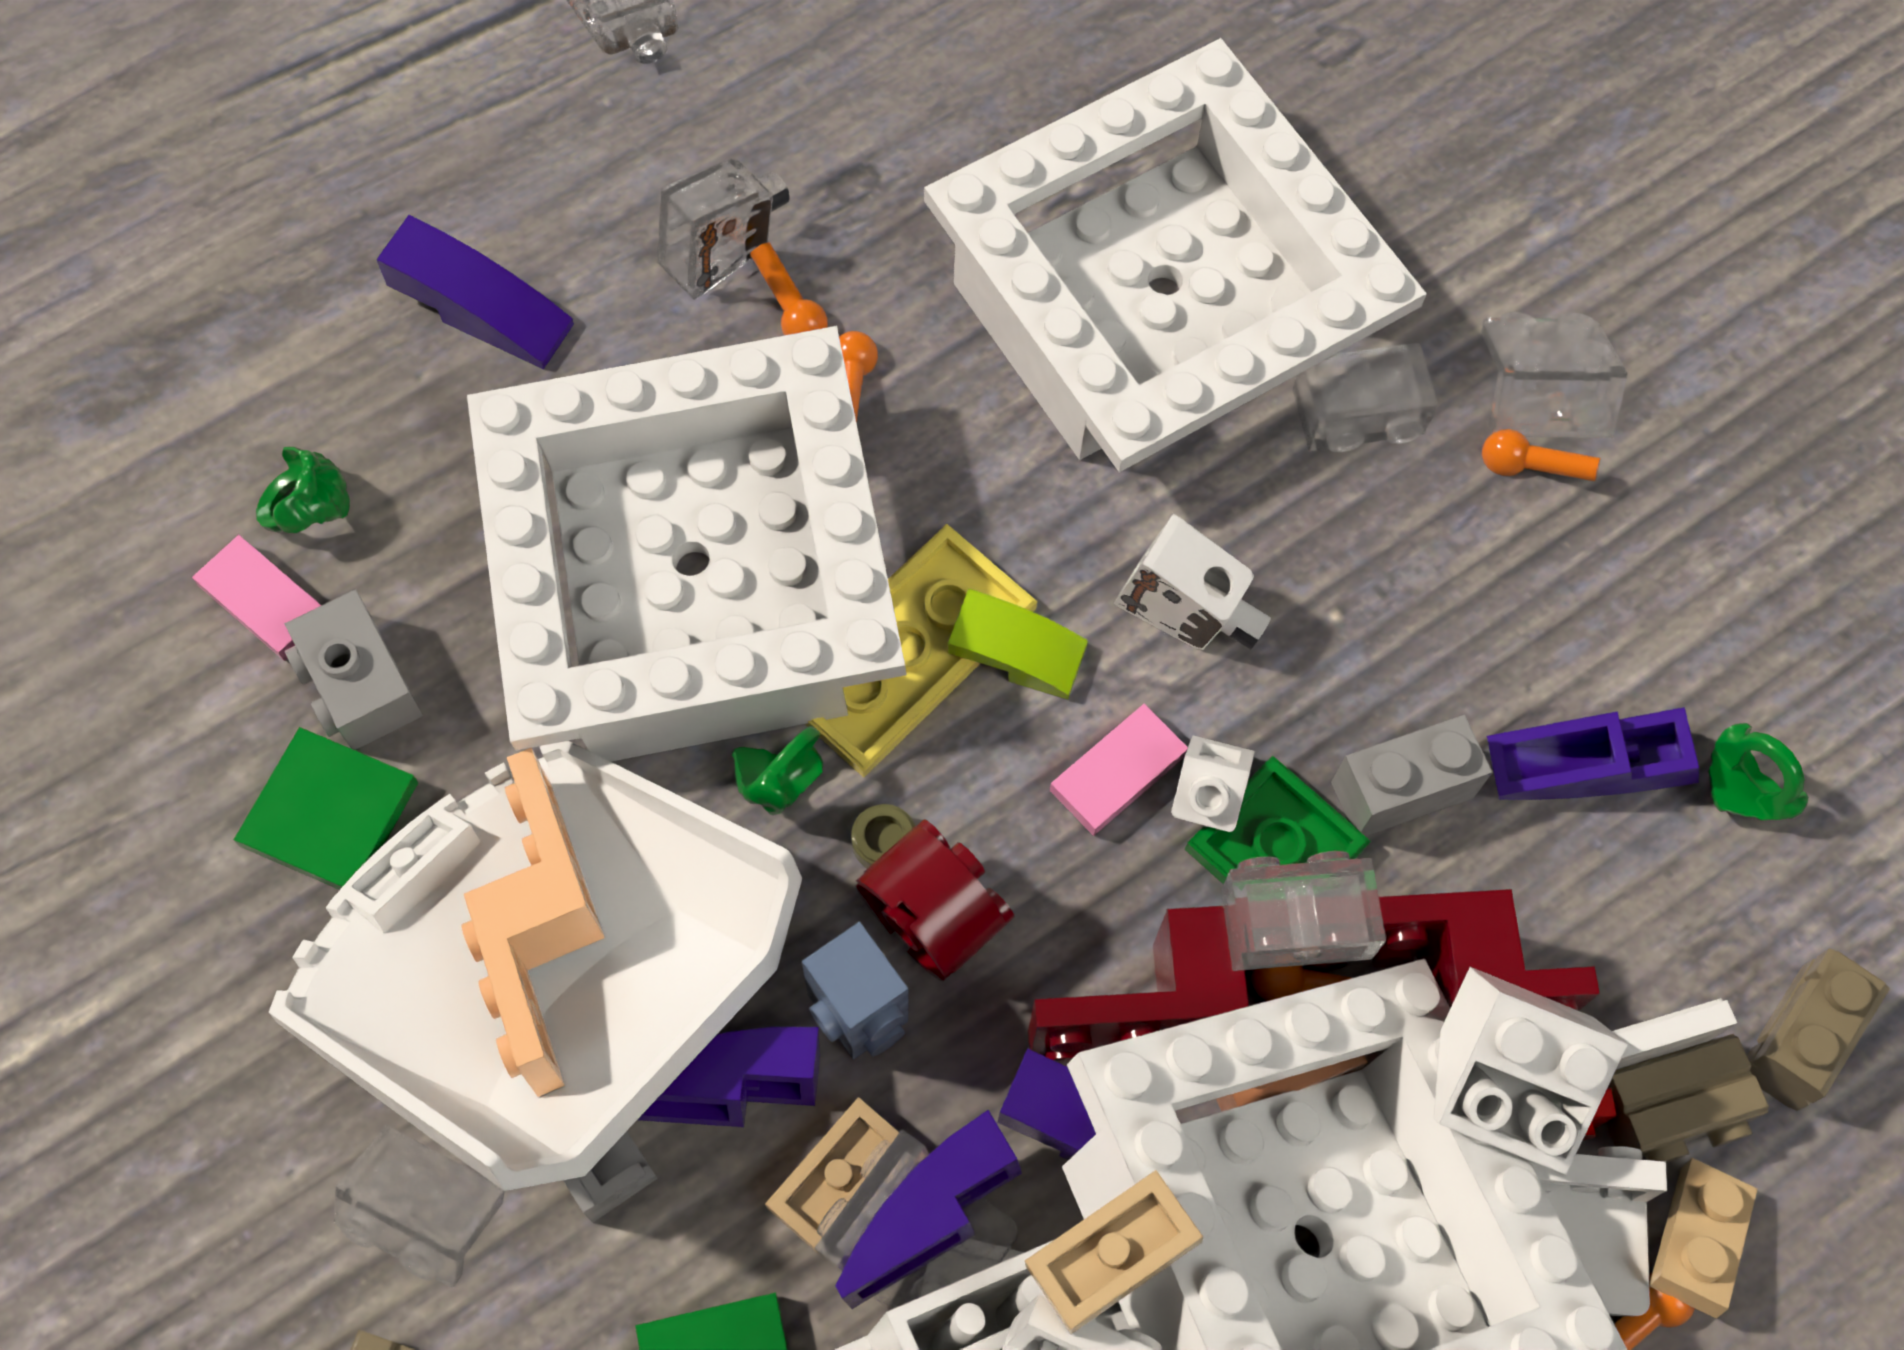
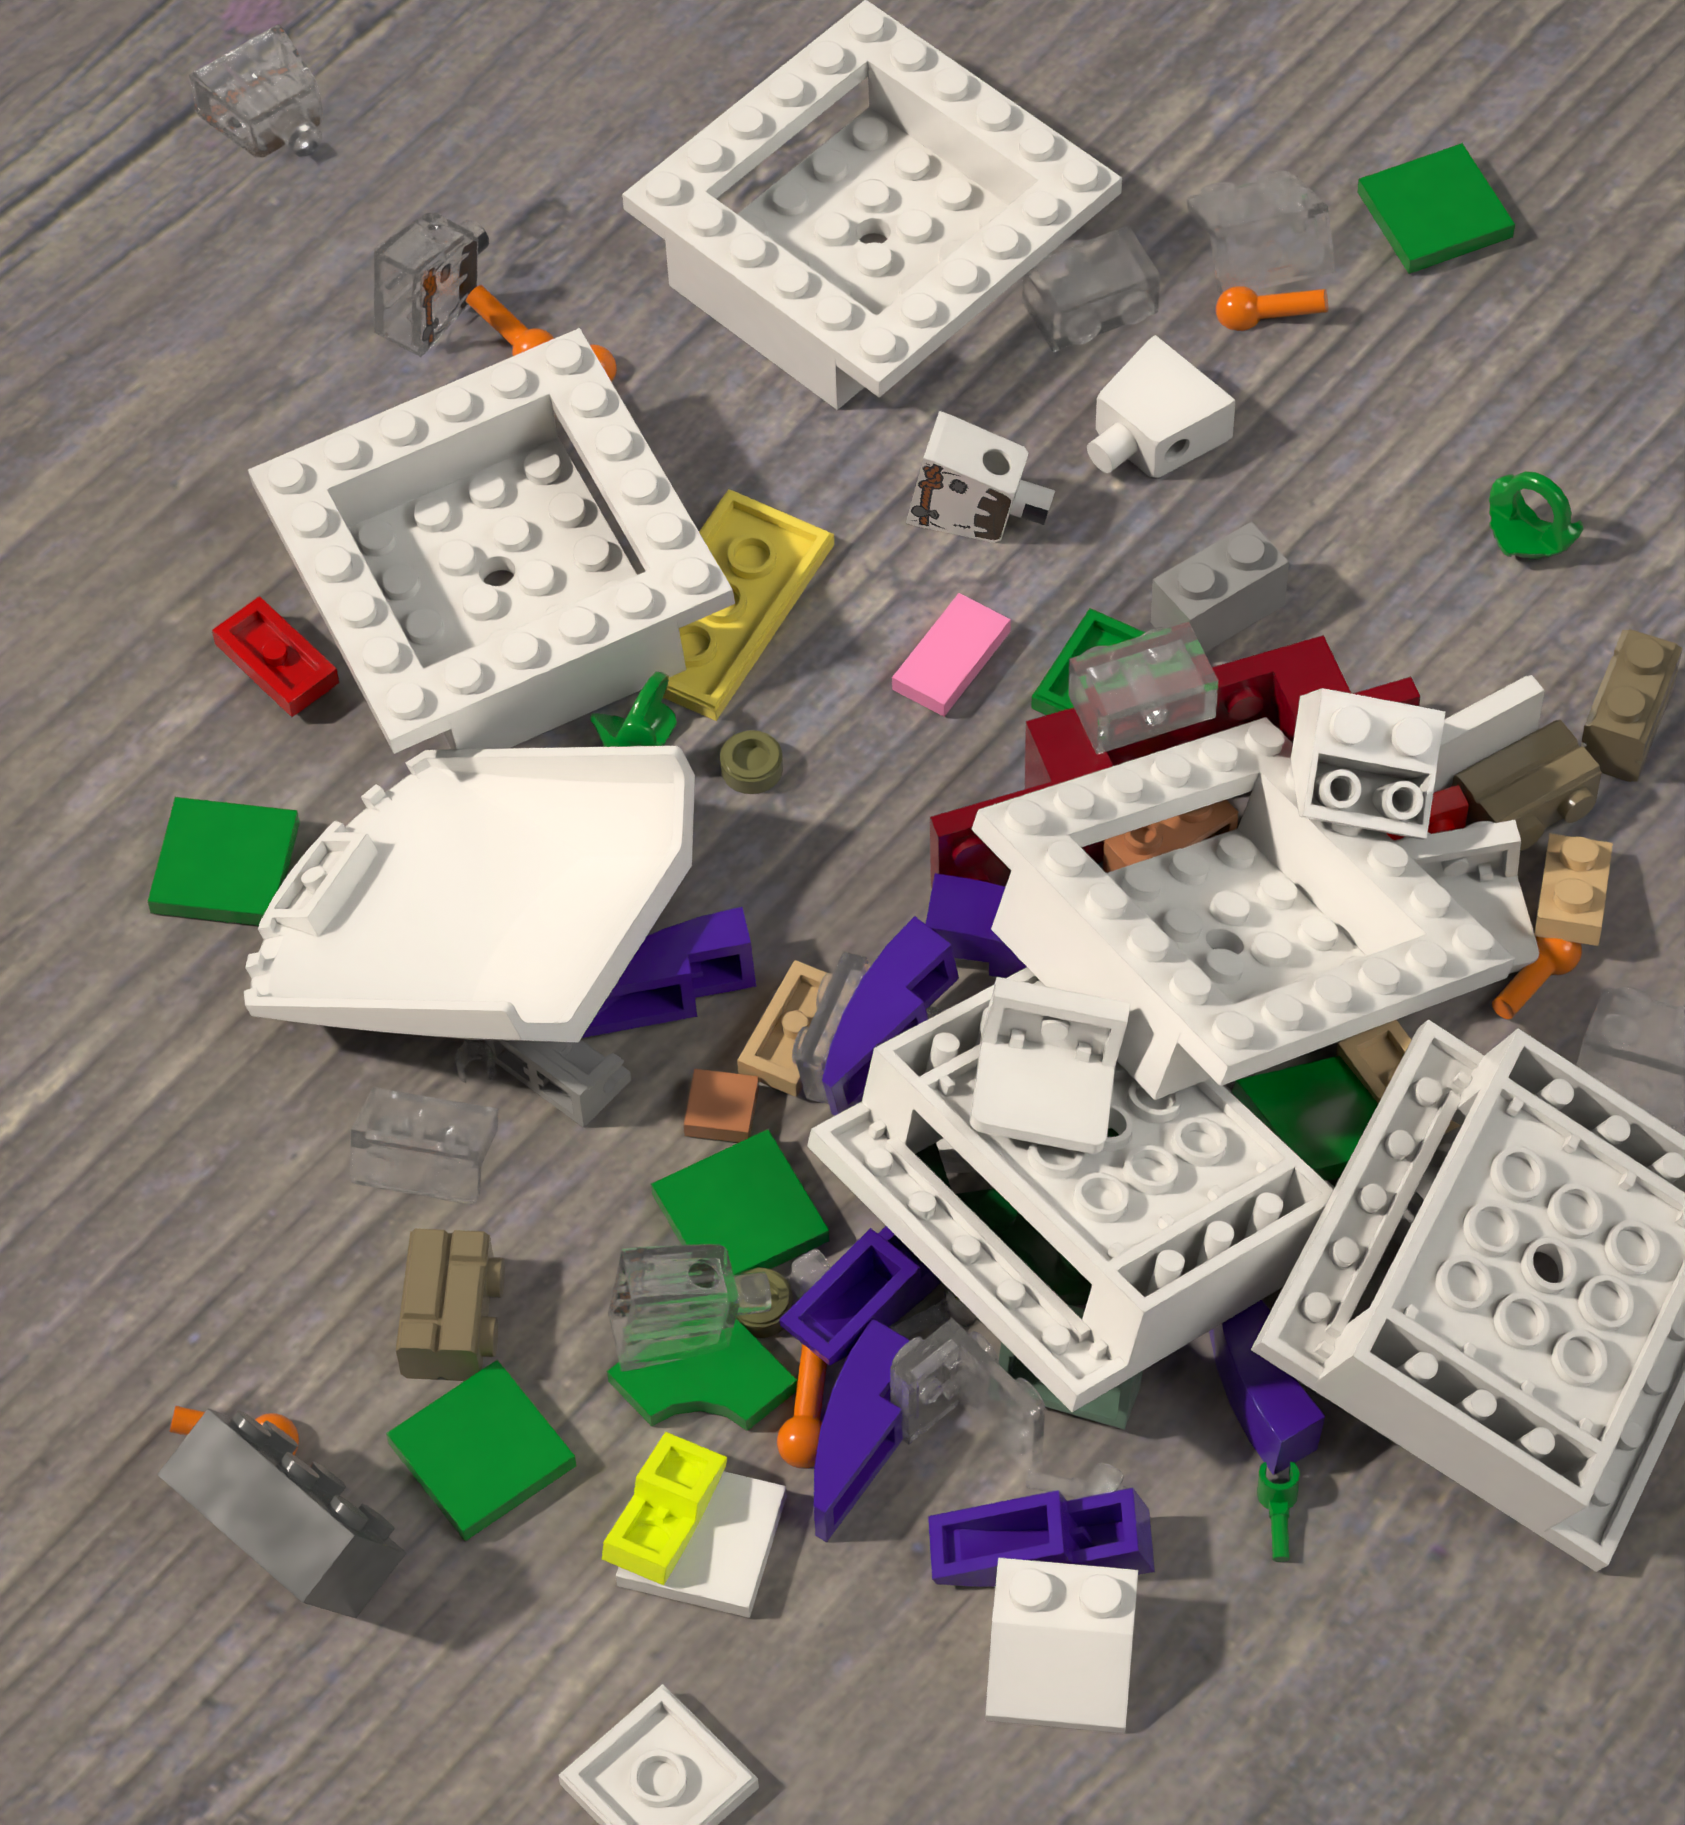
camera: 10 degrees left, 10 degrees down
(255, 593) = (96, 703): bright pink tile -> none
(317, 496) = (123, 602): green piece -> none
(352, 671) = (209, 737): light grey brick -> none
(447, 594) = (275, 656): none -> red plate
(473, 292) = (209, 394): dark purple slope -> none
(528, 923) = (457, 878): light nougat bracket -> none
(737, 1244) = (721, 1105): none -> nougat tile
(856, 993) = (768, 870): sand blue brick -> none
(933, 899) = (814, 785): dark red brick -> none
(1018, 641) = (813, 565): lime slope -> none
(1113, 1251) = (1048, 926): tan plate -> none
(1212, 783) = (1040, 641): white bracket -> none
(1398, 553) = (1159, 413): none -> white torso
(1595, 757) = (1384, 538): dark purple slope -> none
(1730, 393) = (1435, 208): none -> green tile

